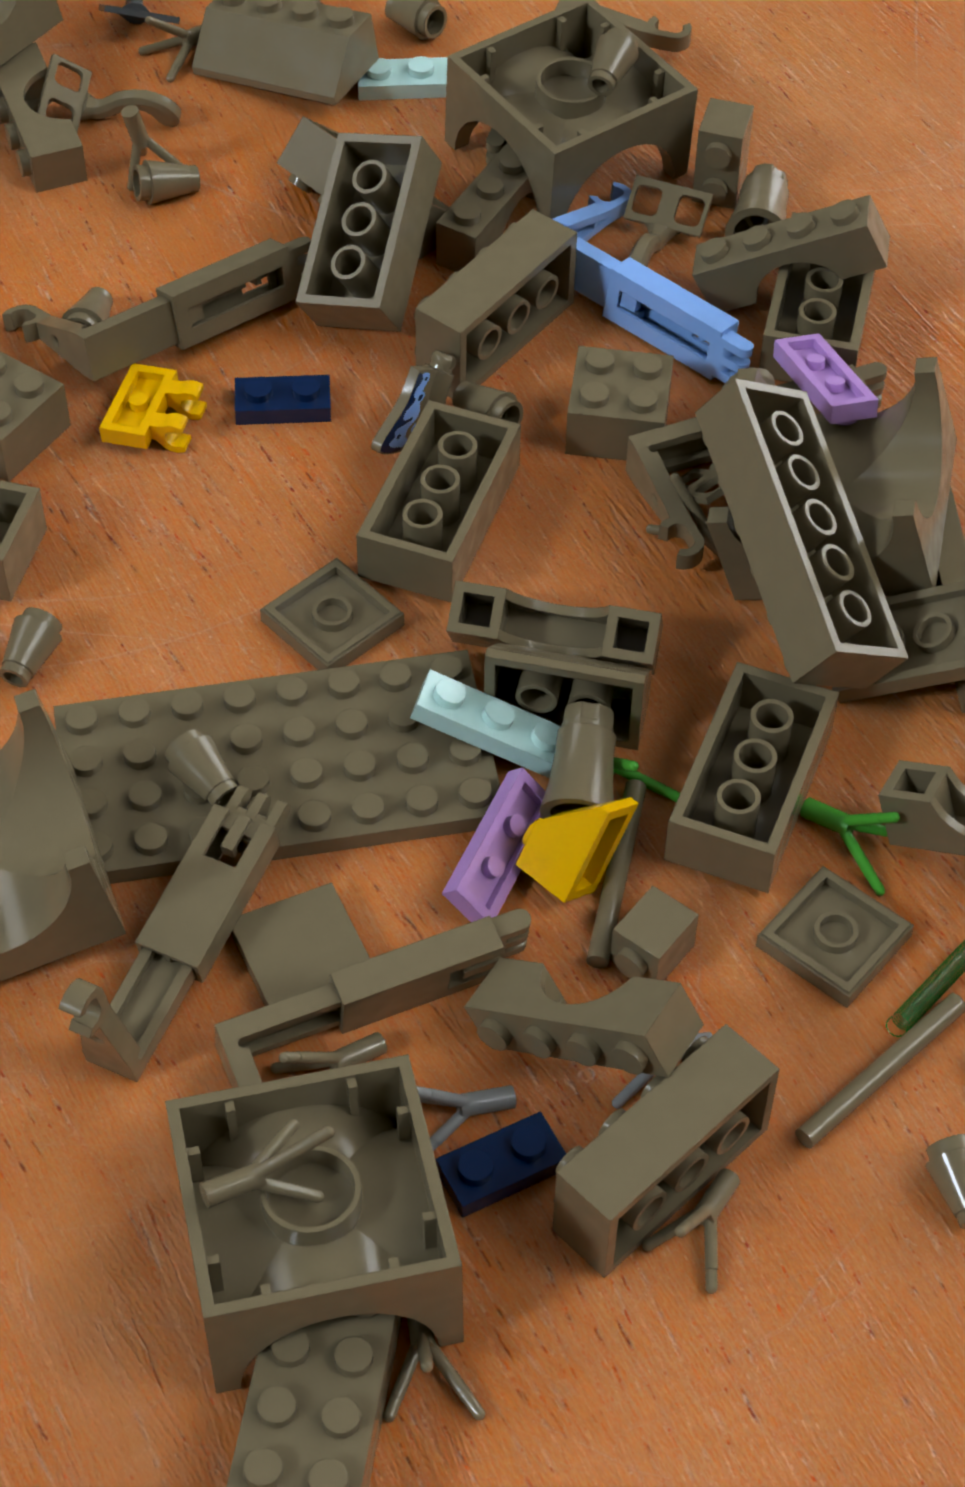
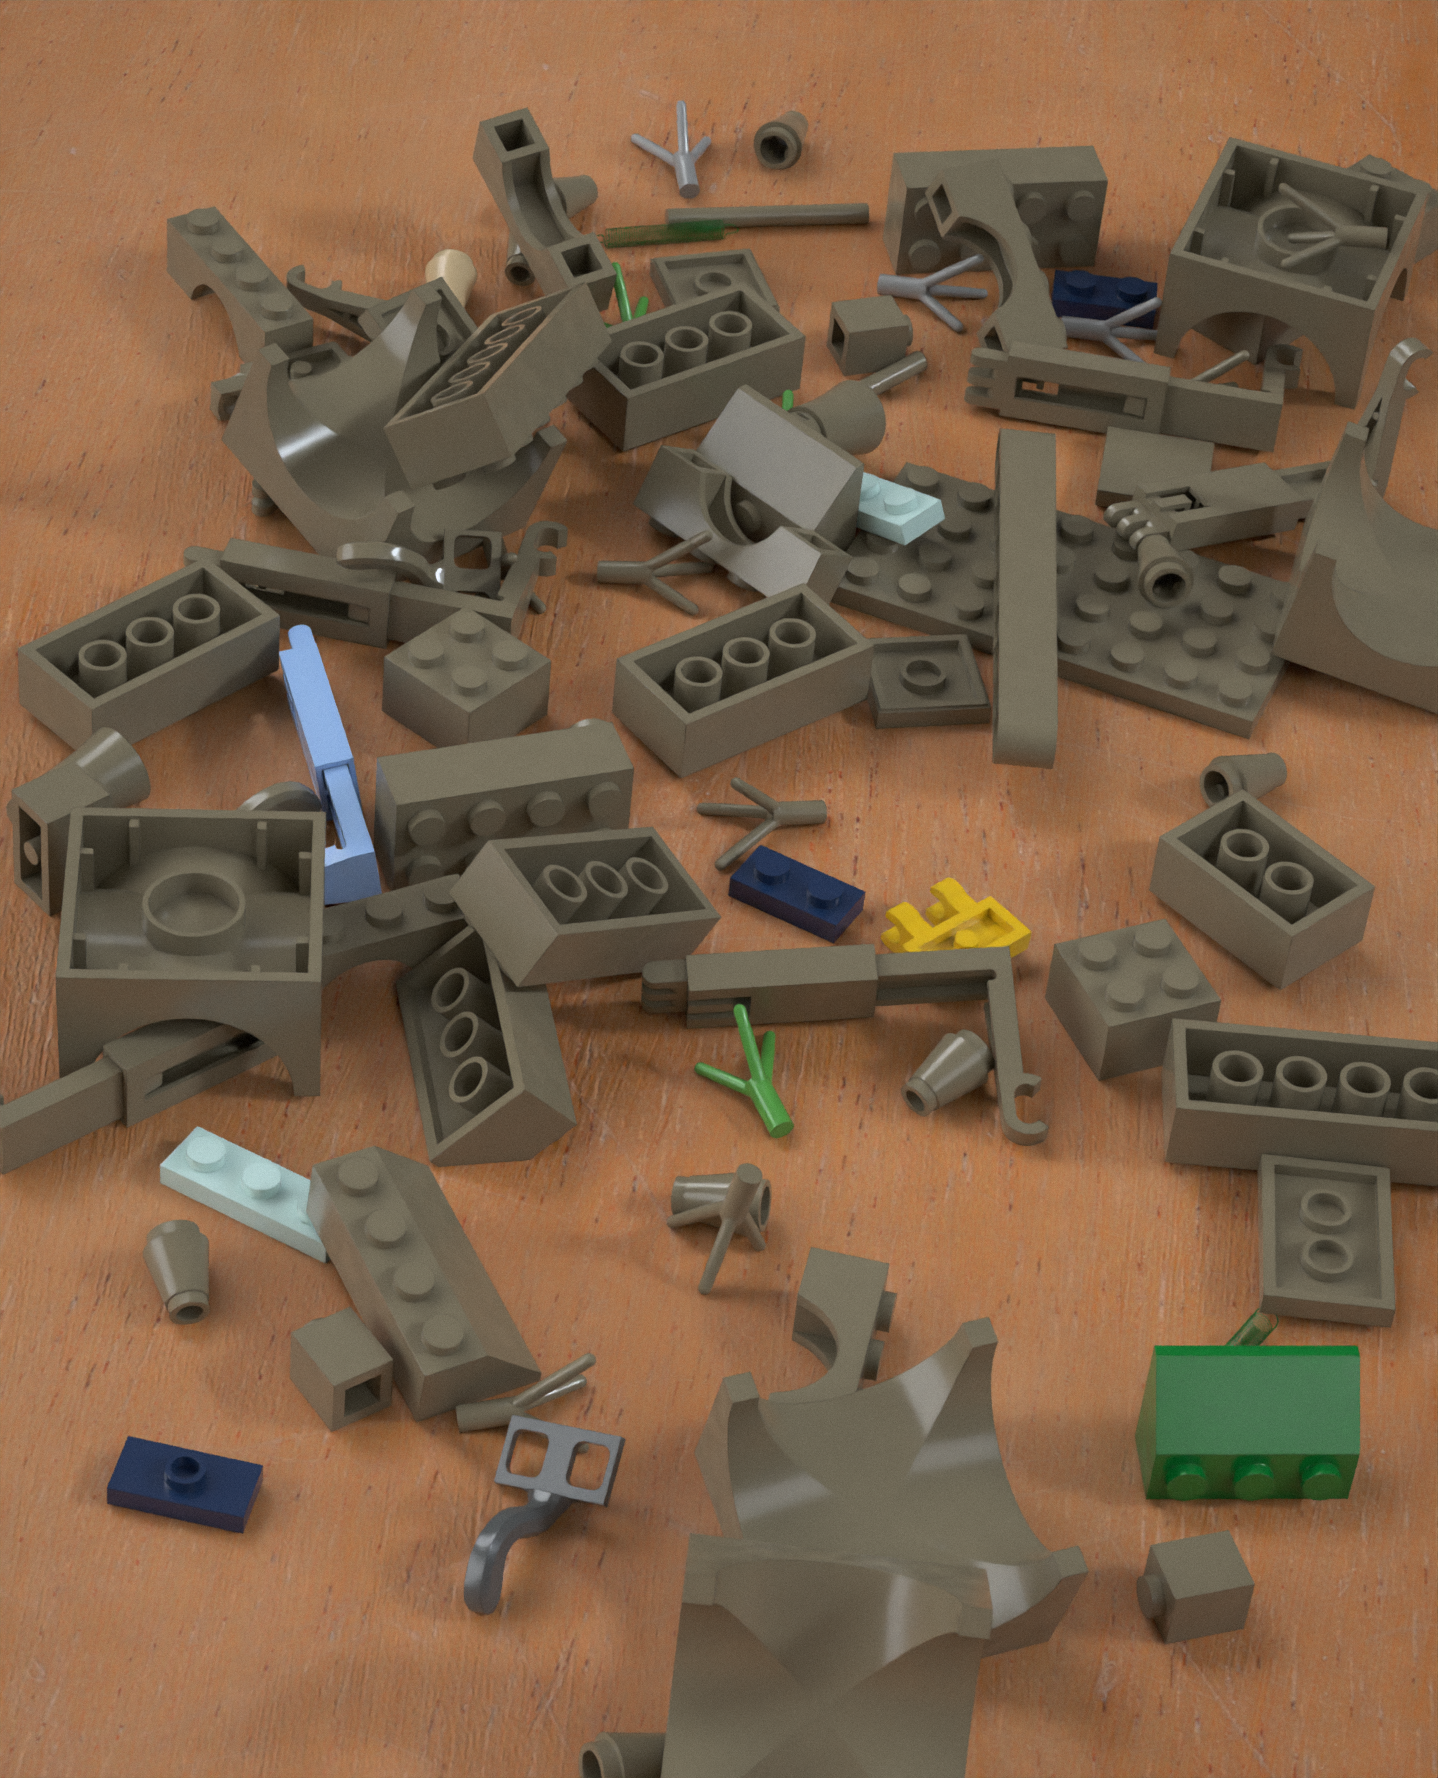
camera: 150 degrees left, 10 degrees down
(85, 106) = (661, 1292): dark tan piece -> none
(196, 256) = (760, 1086): none -> bright green plant
(300, 686) = (1025, 600): none -> dark tan beam
(341, 440) = (773, 812): none -> dark tan plant
(422, 384) = (687, 769): dark tan arm -> none
(490, 859) = (938, 442): lavender plate -> none
(574, 847) = (873, 359): yellow slope -> none
(601, 586) = (646, 571): none -> dark tan plant
(613, 58) = (141, 864): dark tan cone -> none
(826, 378) = (292, 518): lavender plate -> none
(839, 237) = (197, 710): dark tan arch -> none

